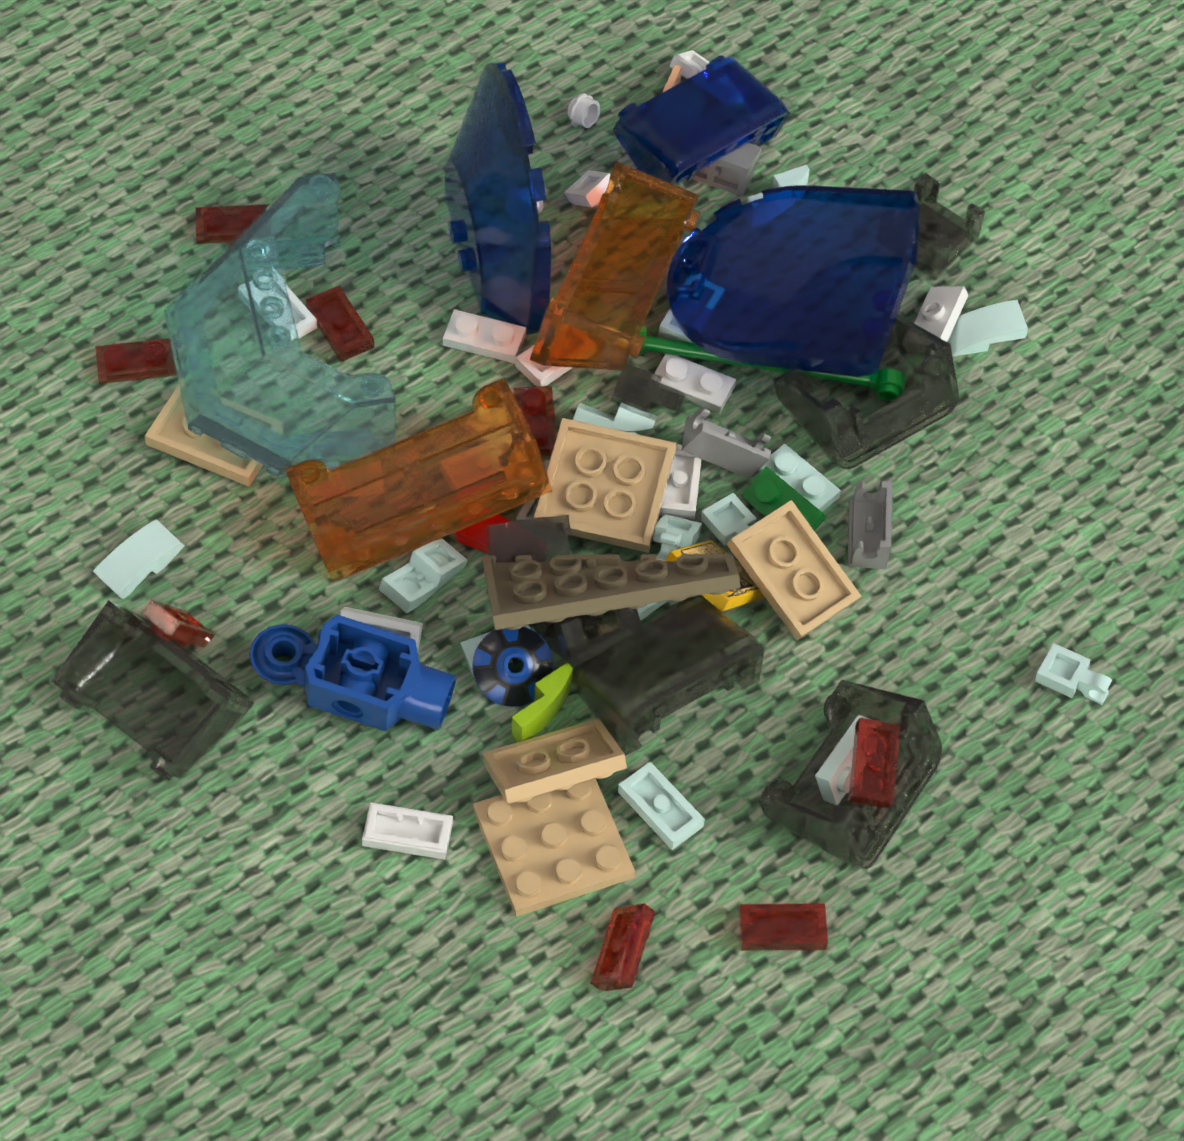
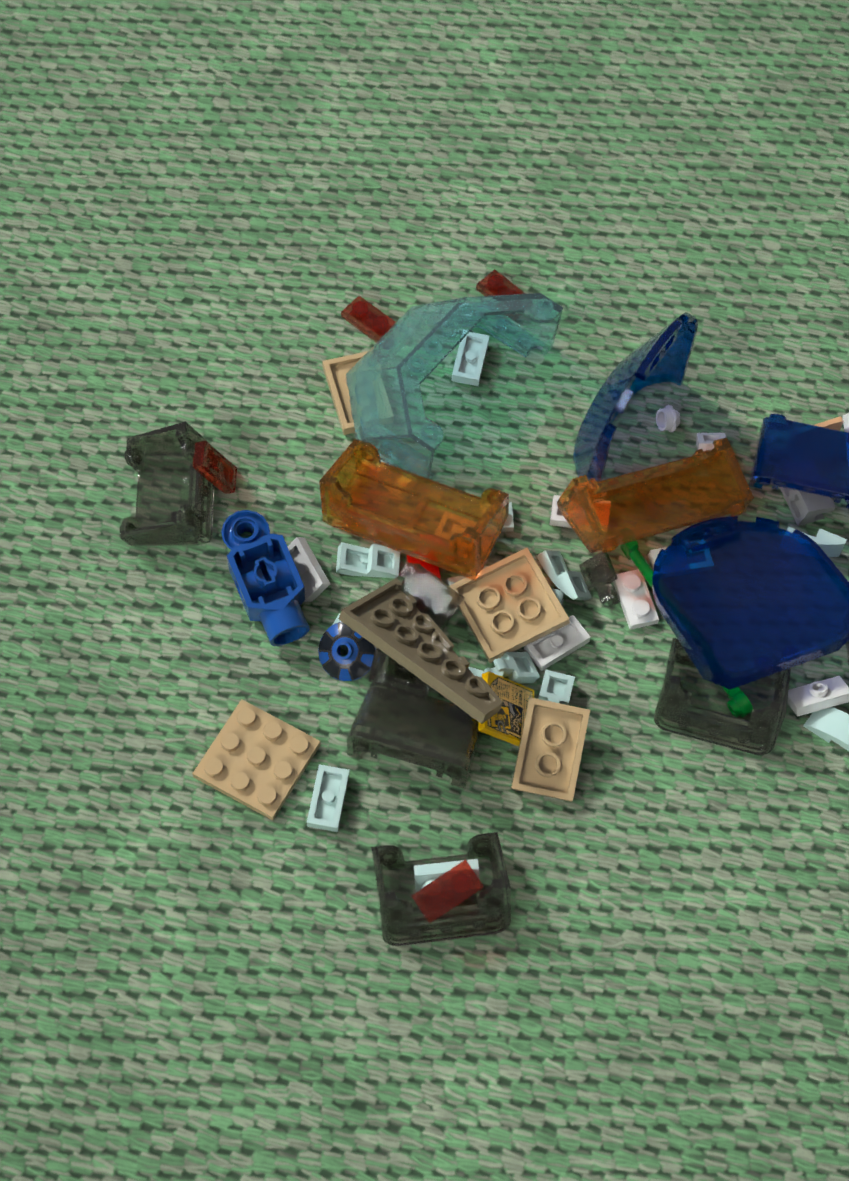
camera: 50 degrees right, 5 degrees up
(137, 556) = (251, 418): light aqua slope -> none
(340, 323) = (490, 394): clear red plate -> none
(407, 831) = (195, 679): white plate -> none
(484, 336) = (554, 467): white plate -> none
(538, 411) = (528, 534): clear red plate -> none
(548, 700) = (346, 686): lime slope -> none
(554, 761) = (300, 718): tan plate -> none
(583, 107) = (764, 396): white plate -> none
(623, 947) = (216, 847): clear red plate -> none
(724, 446) = (601, 646): light grey hinge -> none
(771, 492) = (598, 699): green plate -> none
(783, 927) = (306, 925): clear red plate -> none
(802, 477) = (623, 707): light aqua plate -> none
(870, 527) = (627, 770): light grey hinge -> none
(1069, 671) = (633, 961): light aqua plate -> none

